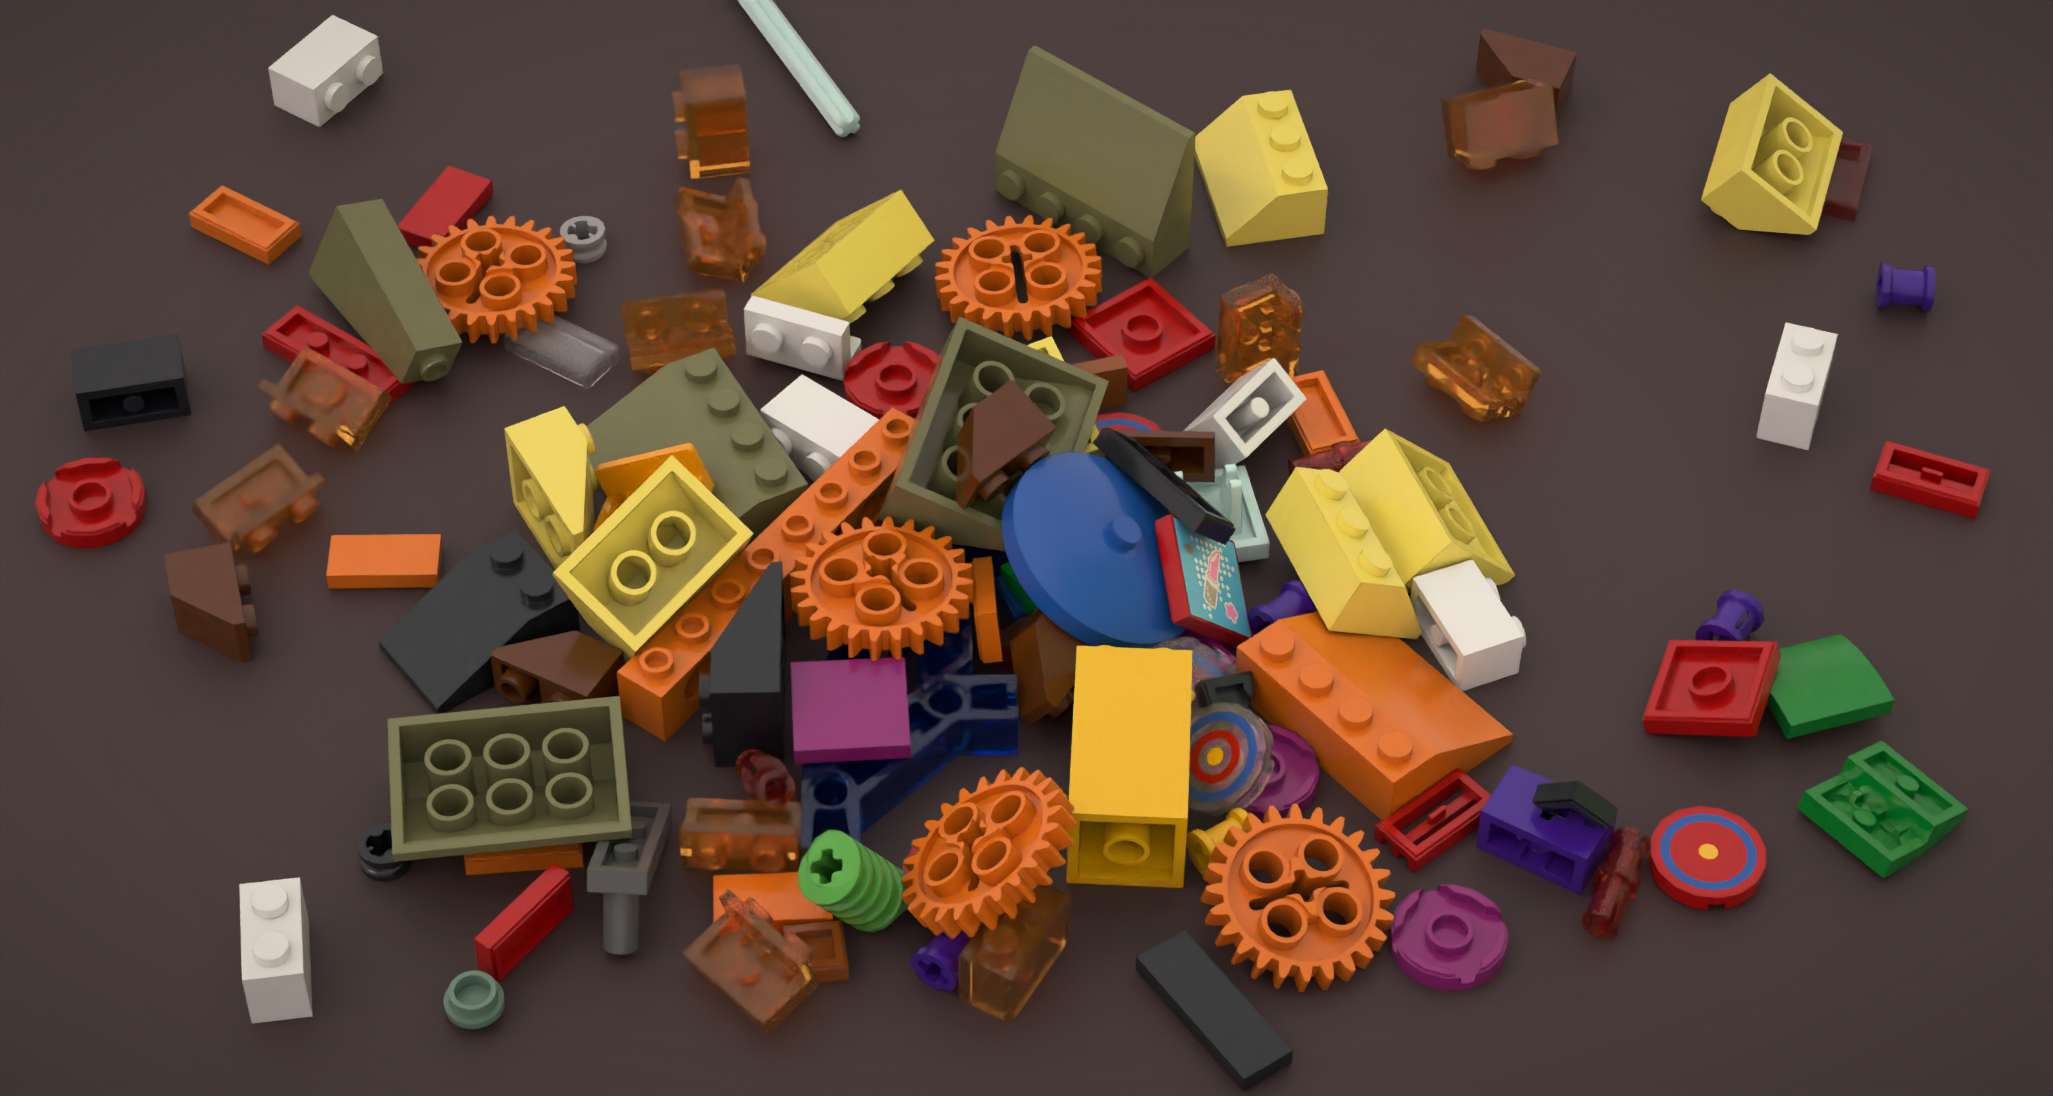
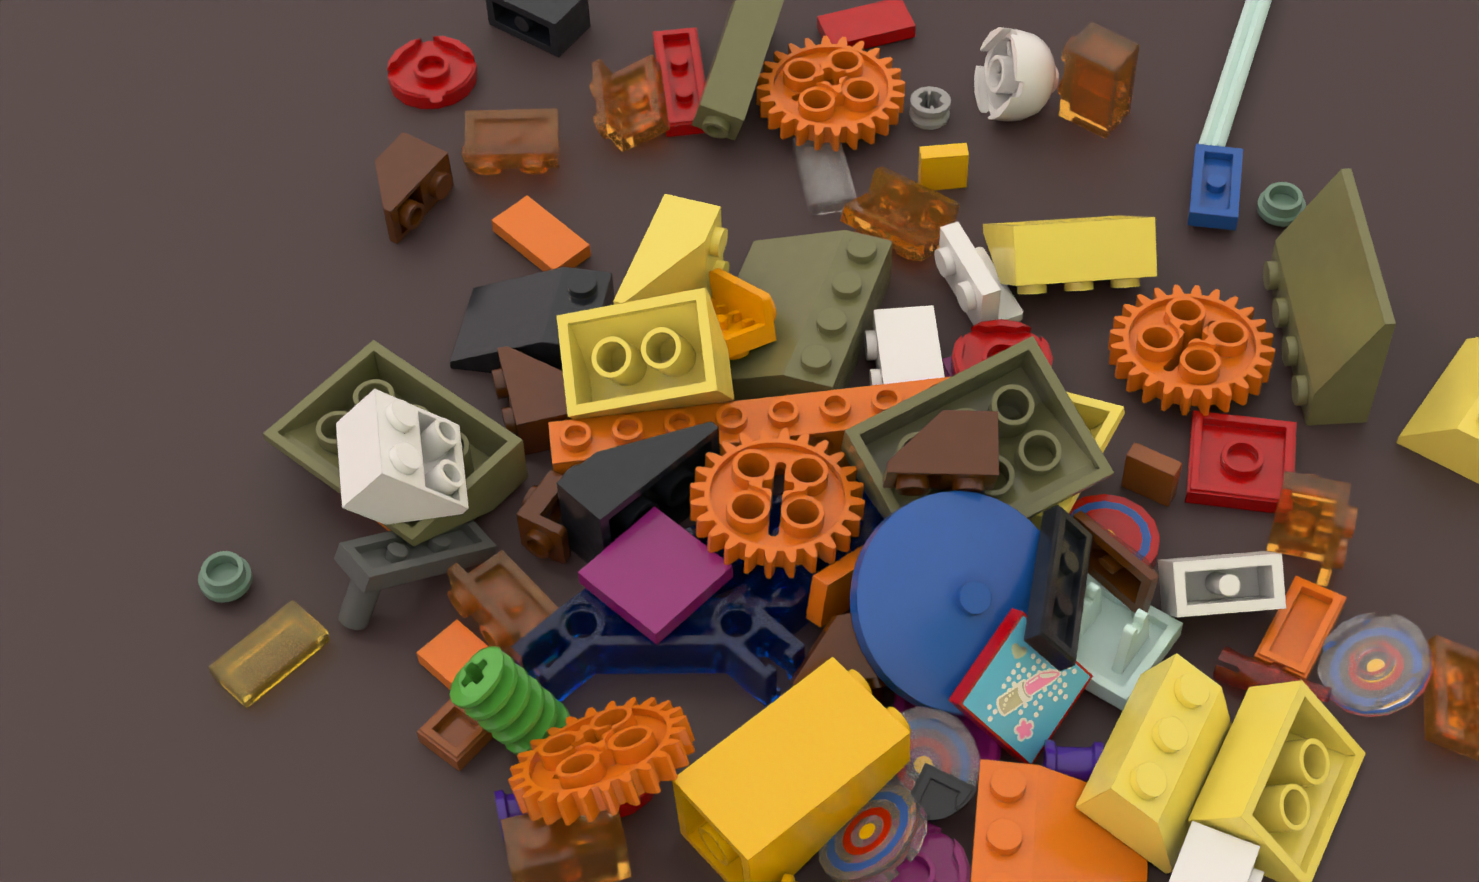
camera: 50 degrees right, 5 degrees up
(275, 950) = (156, 443): white brick -> none
(524, 923) = (299, 549): red tile -> none
(558, 774) = (399, 462): none -> white slope
(588, 1022) = (269, 653): none -> clear yellow tile
(633, 164) = (1015, 76): none -> white cylinder
(662, 270) = (943, 166): none -> yellow tile
(692, 764) = (541, 520): none -> reddish brown bracket
(719, 231) = (1015, 163): clear orange bracket -> none
(753, 962) = (396, 704): clear orange bracket -> none
(759, 784) = (552, 577): clear red pin -> none
(889, 148) = (1215, 187): none -> blue plate
(952, 129) = (1280, 203): none -> sand green plate
(1396, 392) = (1375, 664): none -> clear tile

